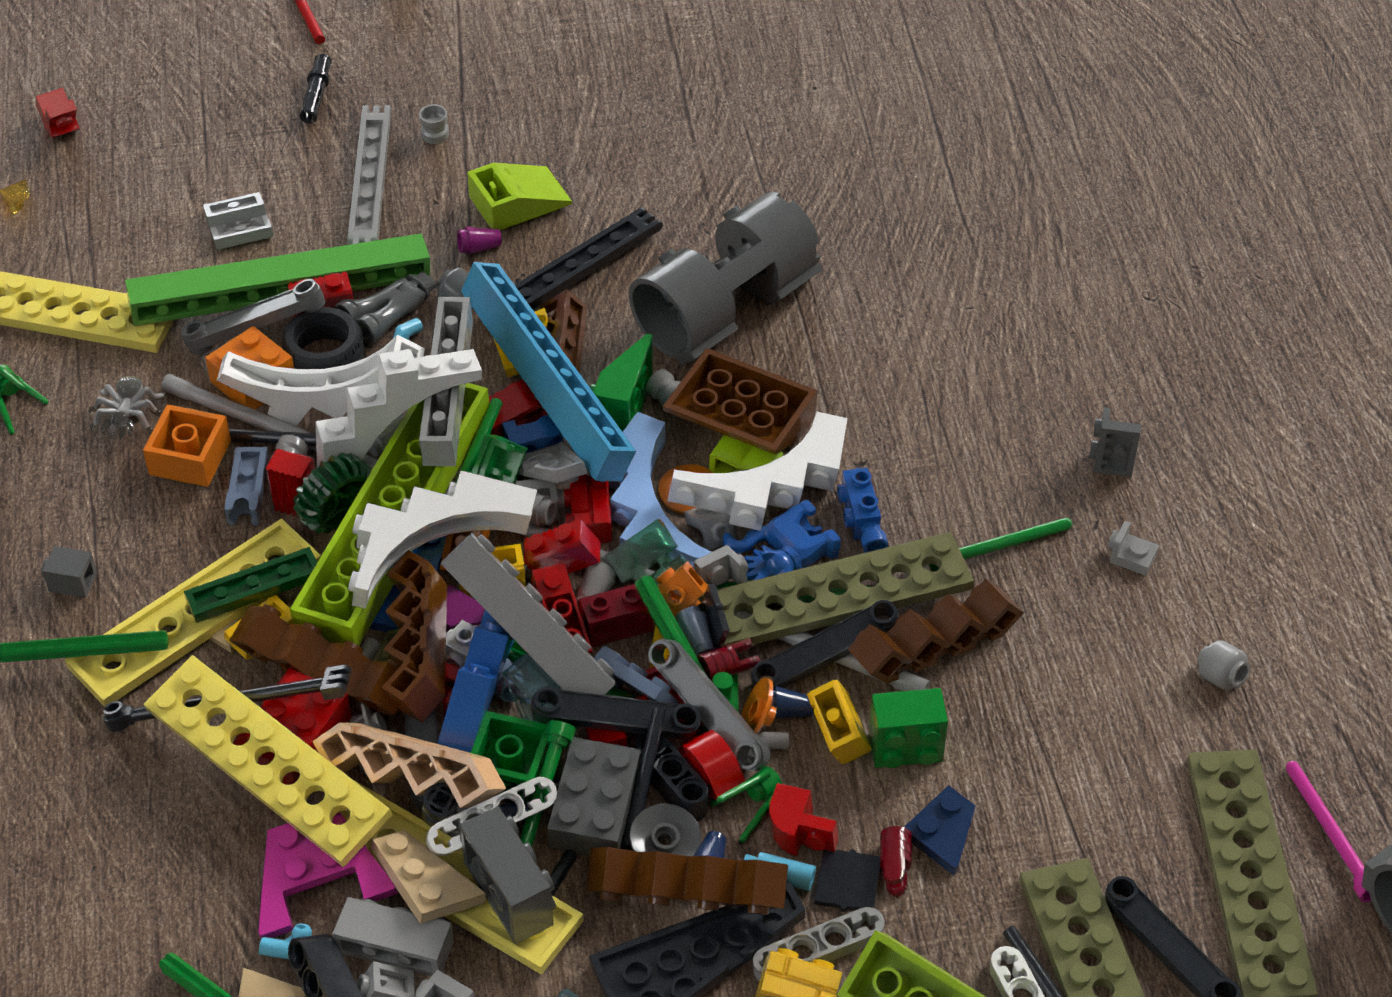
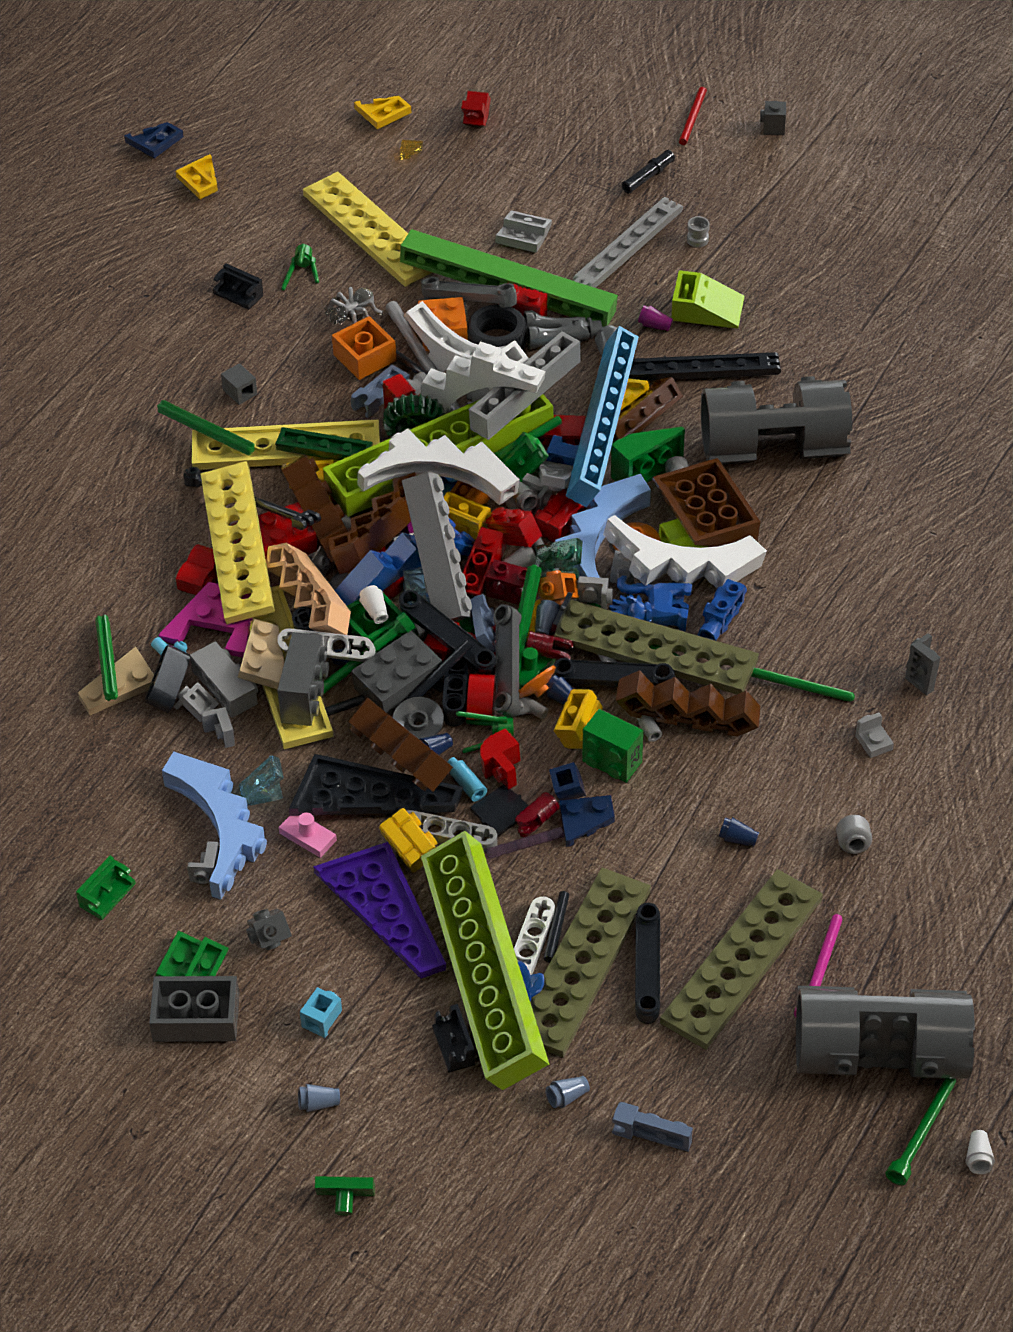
camera: 40 degrees right, 0 degrees up
(238, 824) = (197, 570): none -> red brick
(507, 732) = (373, 602): none -> white cone
(899, 800) = (567, 782): none -> dark blue brick
(913, 897) = (524, 842): none -> bar
(1110, 740) = (738, 832): none -> dark blue cone

